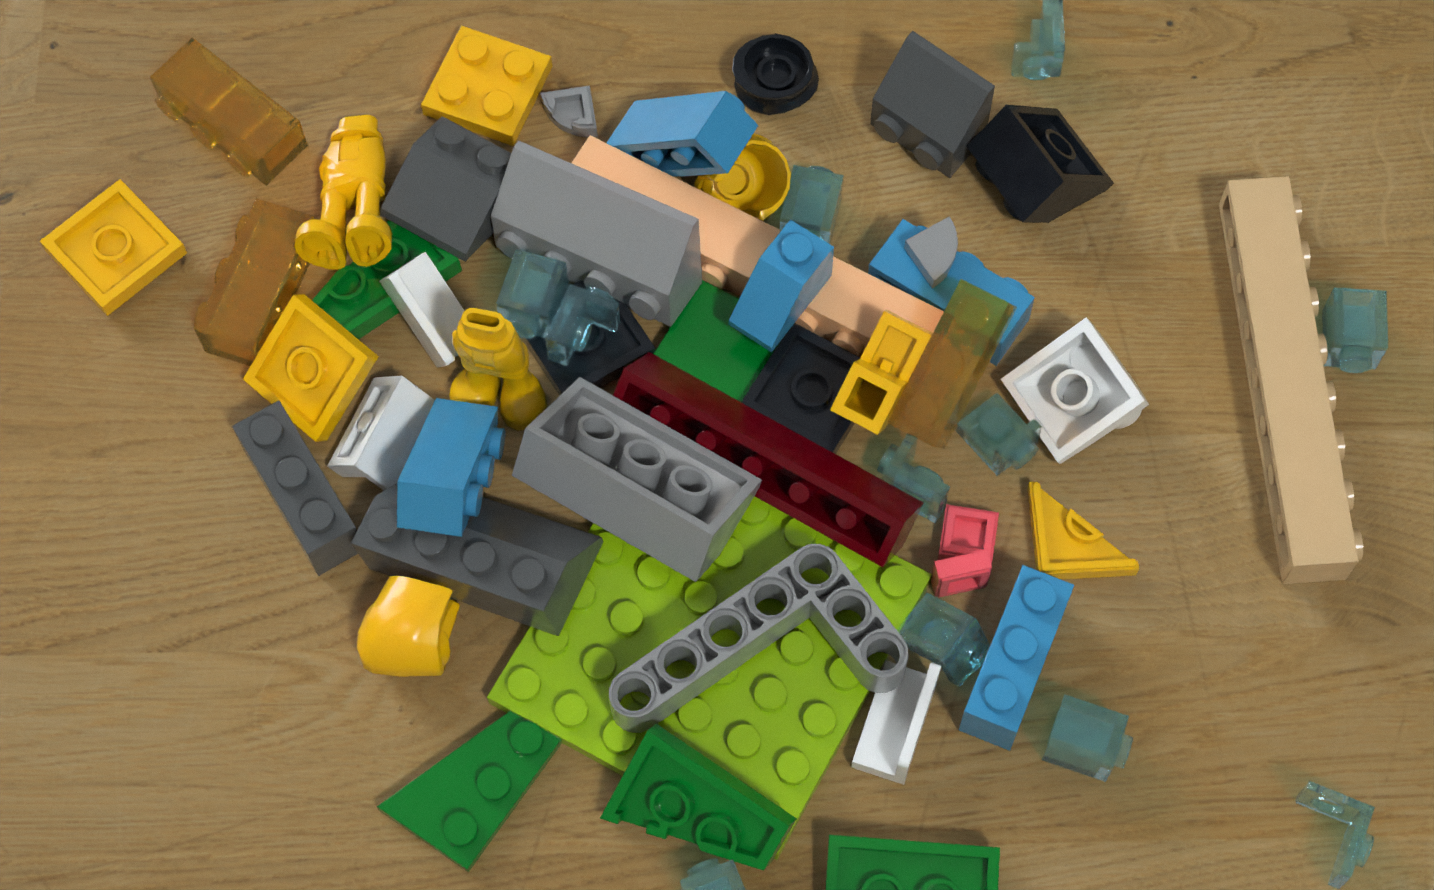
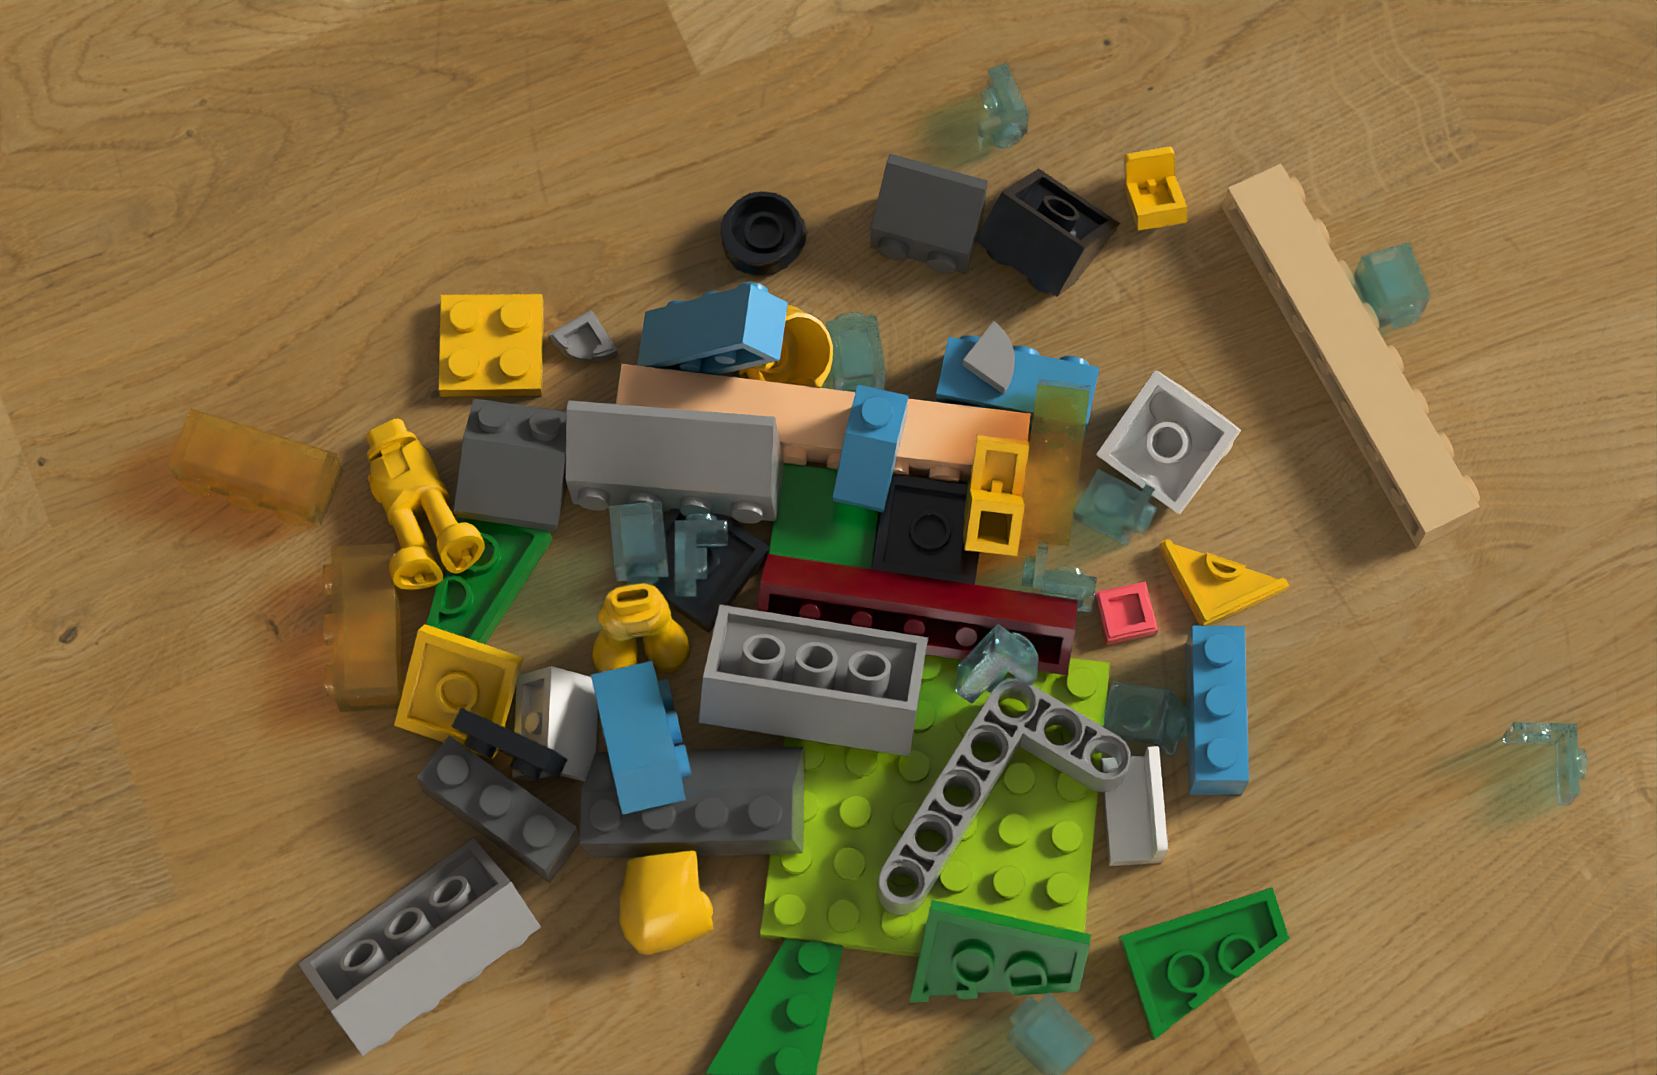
camera: 25 degrees left, 5 degrees up
(113, 247) = (207, 644): yellow plate -> none
(167, 585) = (419, 946): none -> light grey slope
(338, 444) = (527, 754): none -> black plate
(426, 306) = (545, 591): white panel -> none
(819, 519) = (992, 659): none -> clear light blue bracket
(961, 573) = (1136, 652): coral tile -> none
(1088, 739) = (1307, 759): clear light blue brick -> none
(1158, 159) = (1153, 189): none -> yellow bracket

